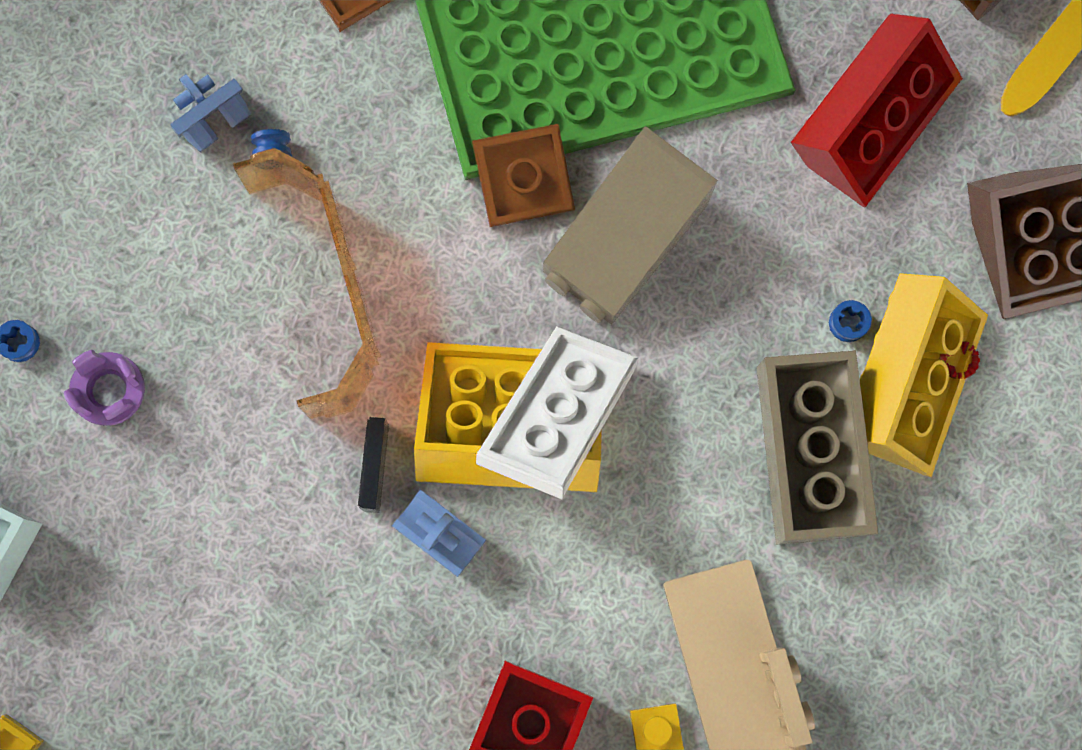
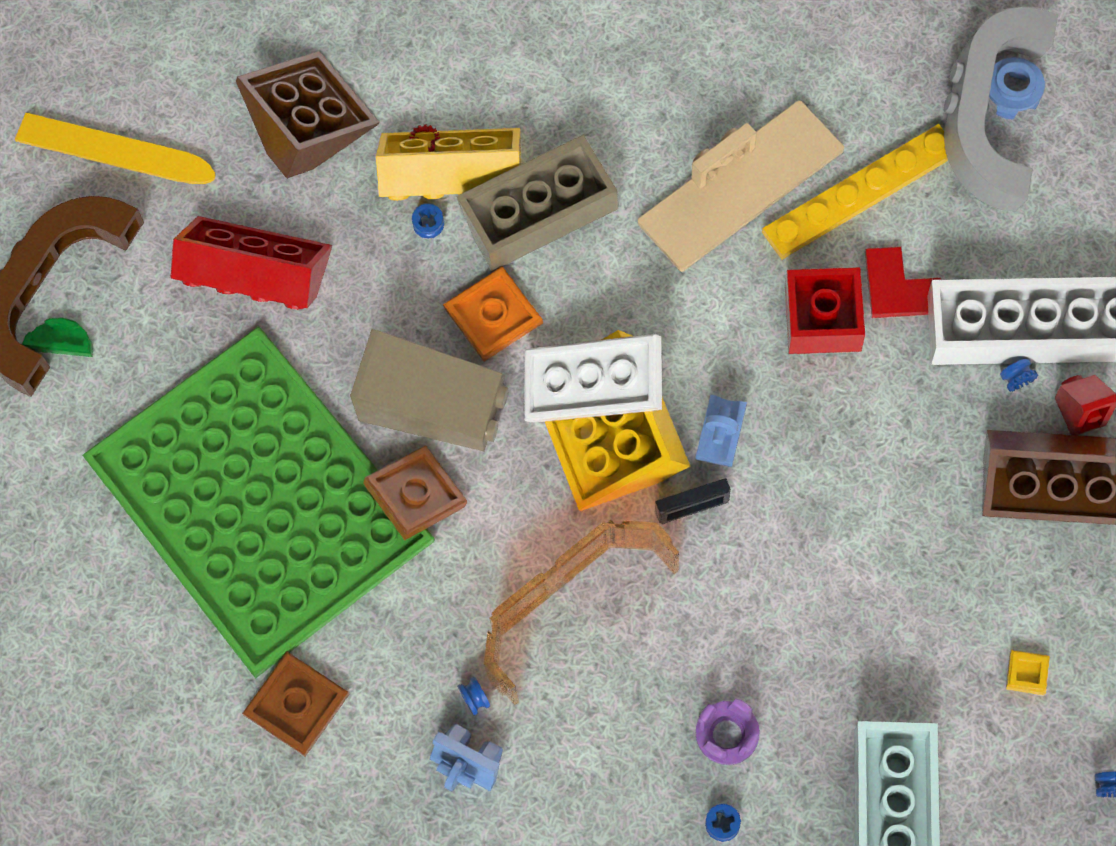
camera: 105 degrees left, 10 degrees down
(703, 347) = (493, 313): none -> orange tile

